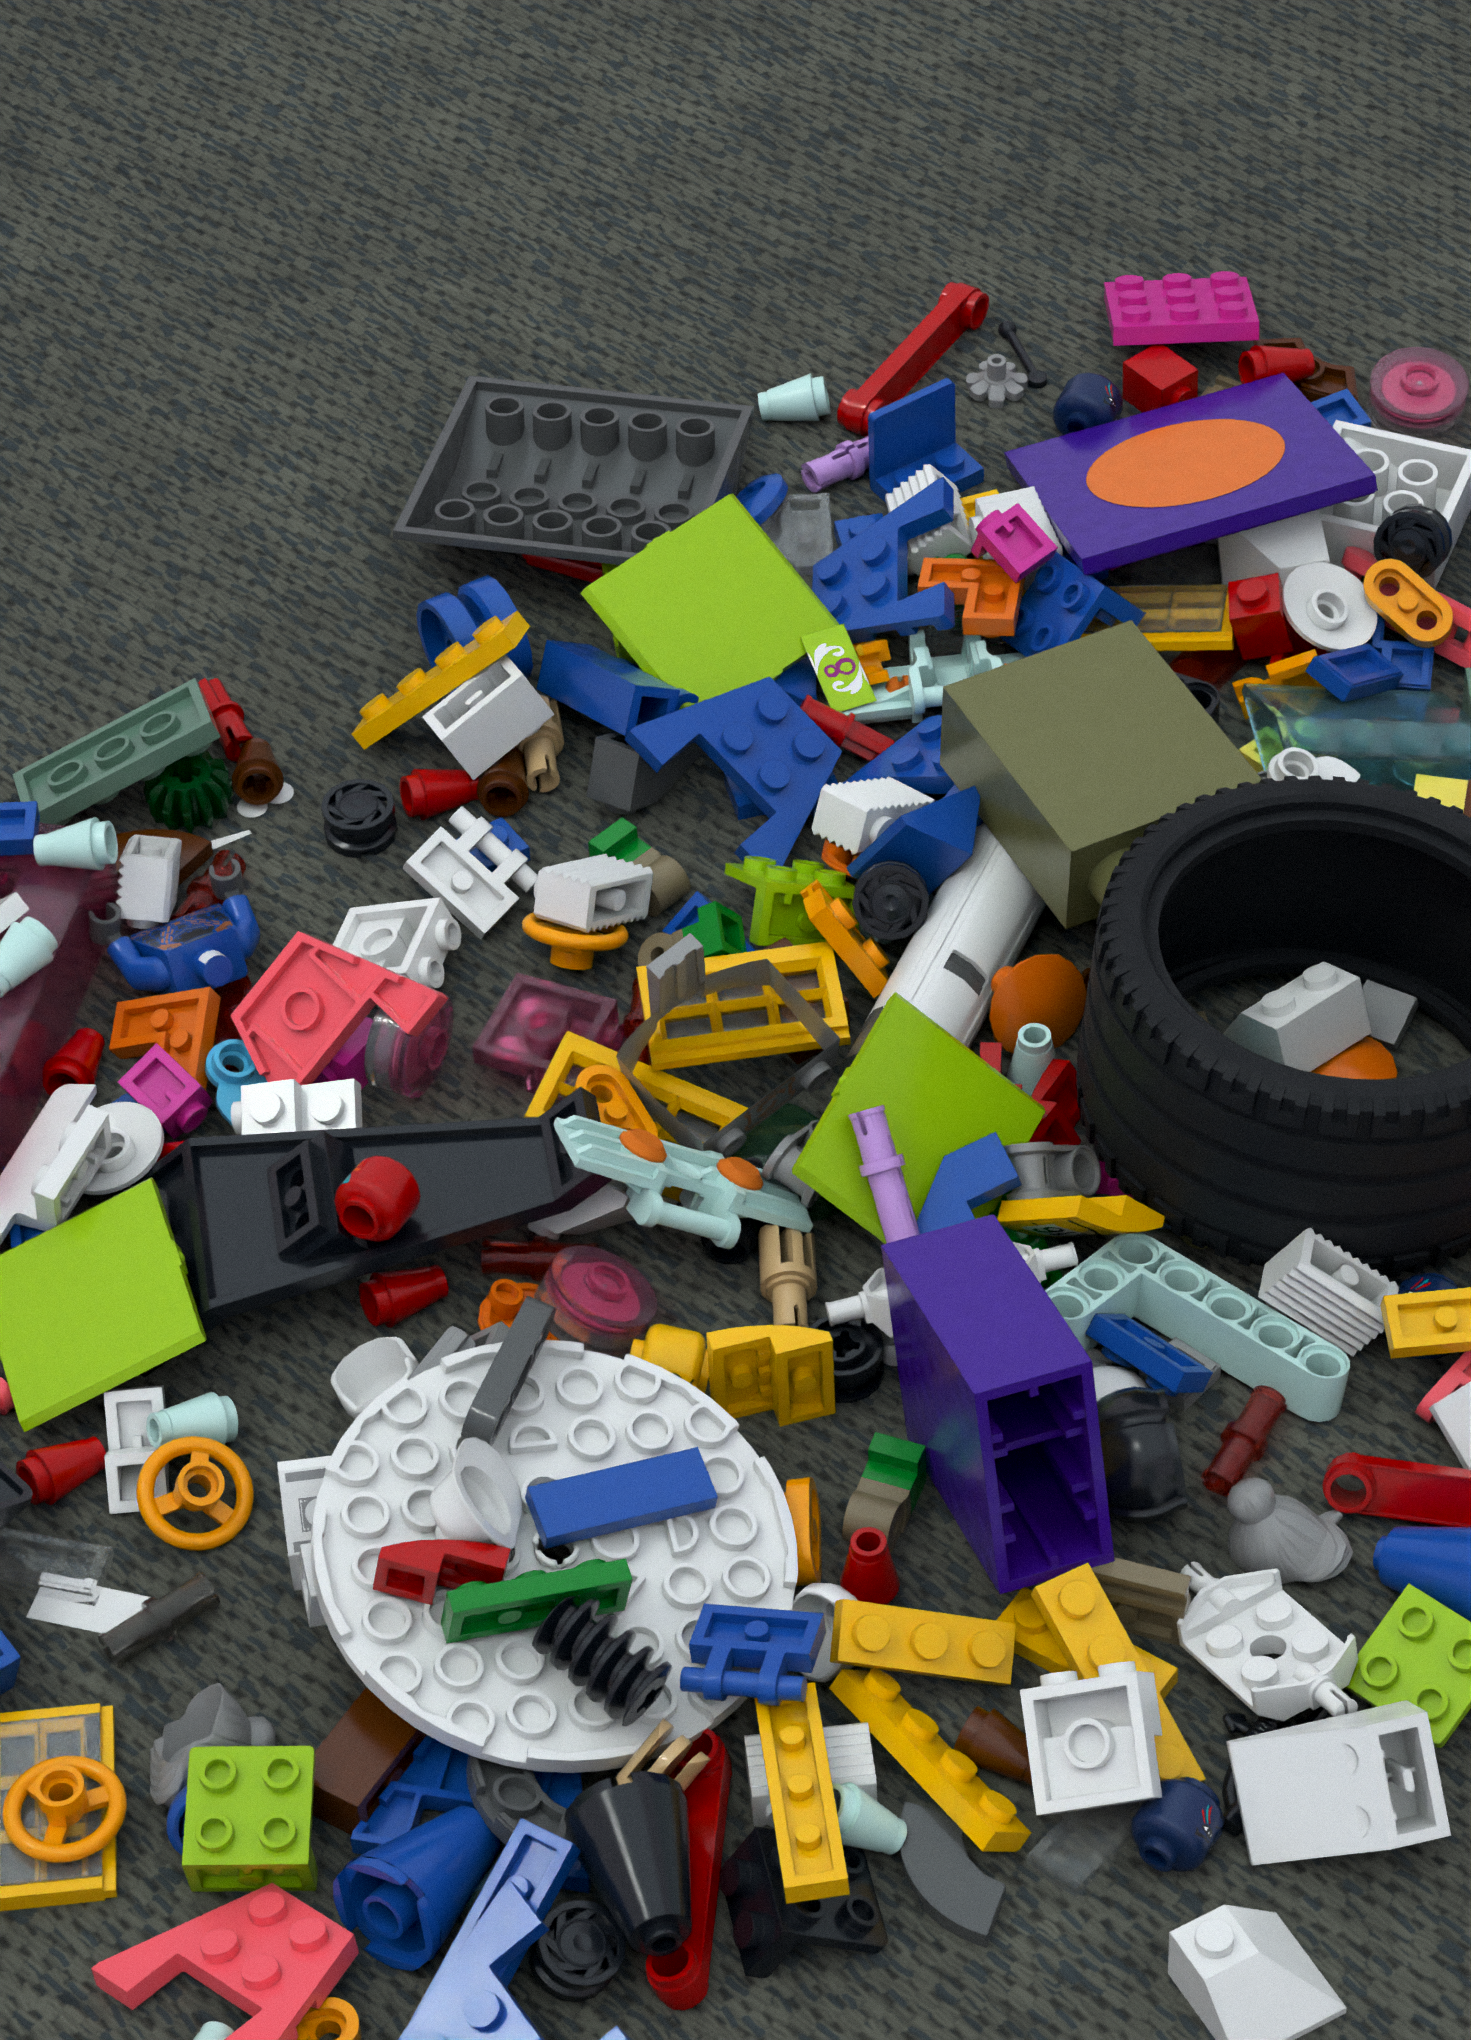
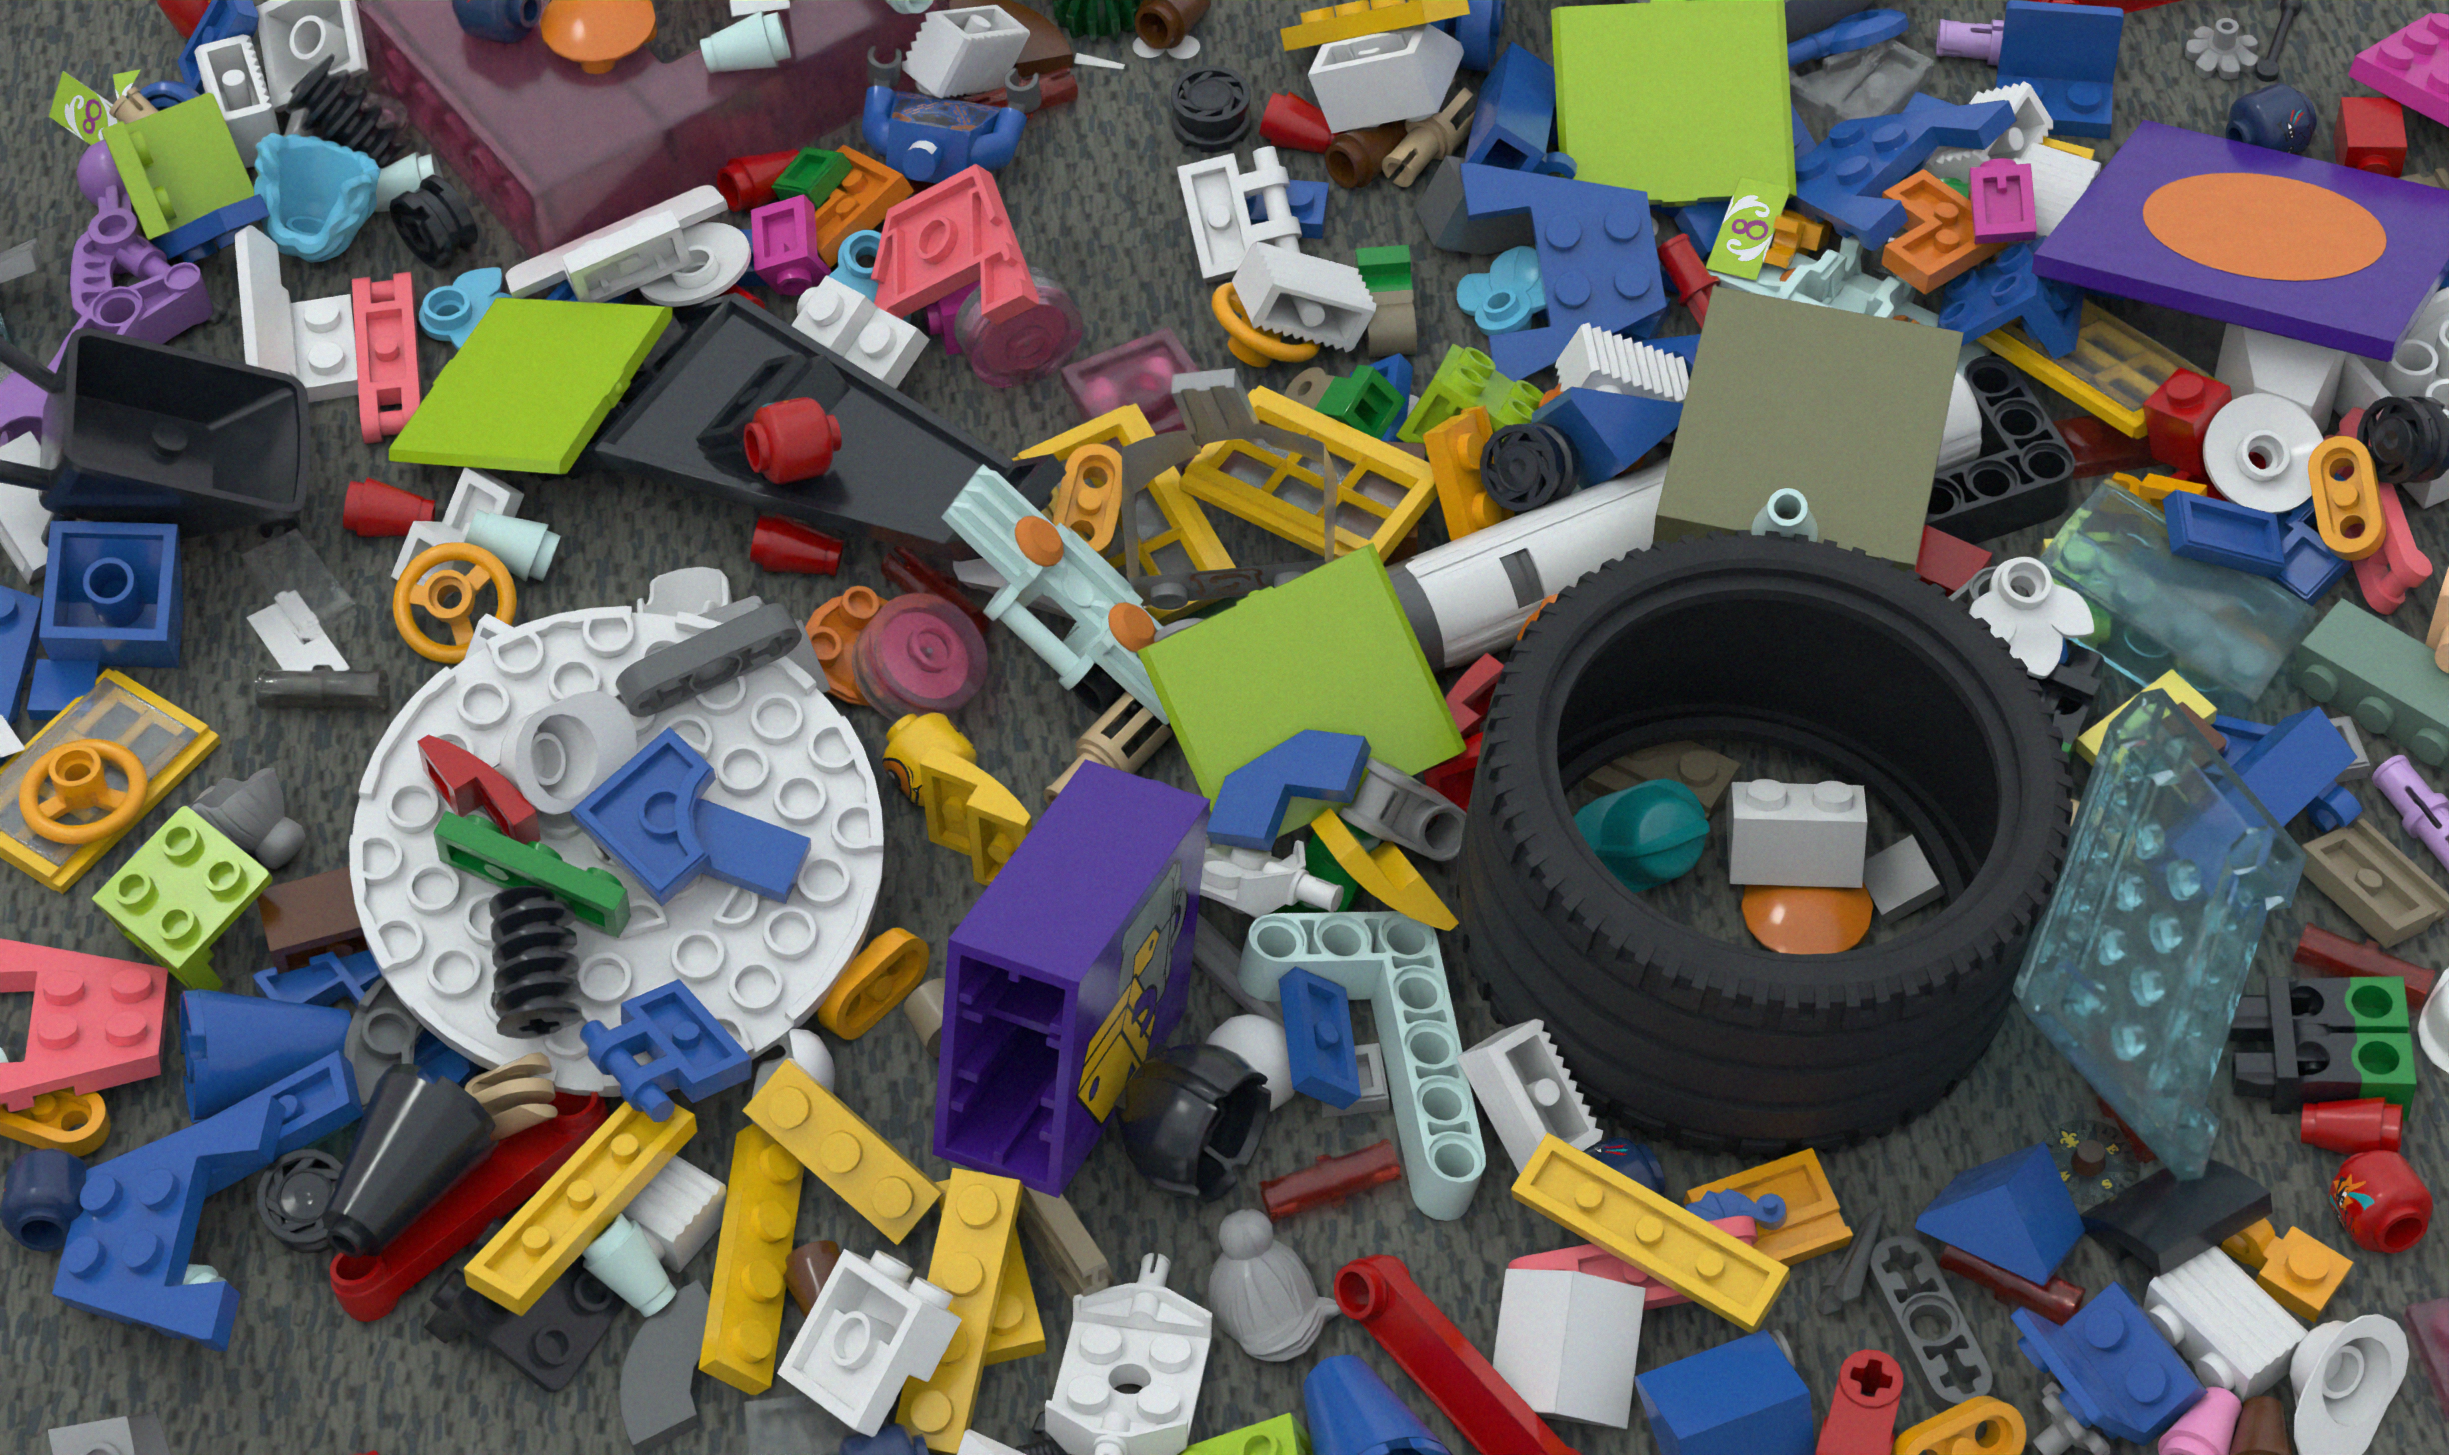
camera: 40 degrees right, 5 degrees up
(122, 1037) = (814, 174): none -> green tile
(403, 937) = (1103, 244): white plate -> none
(578, 1507) = (648, 816): none -> blue tile
(710, 815) = (1506, 295): none -> medium azure plate
(870, 1568) = (884, 1058): red cone -> none
(884, 1173) = (1220, 714): lavender pin -> none
(1175, 789) = (1786, 504): none -> light aqua cone

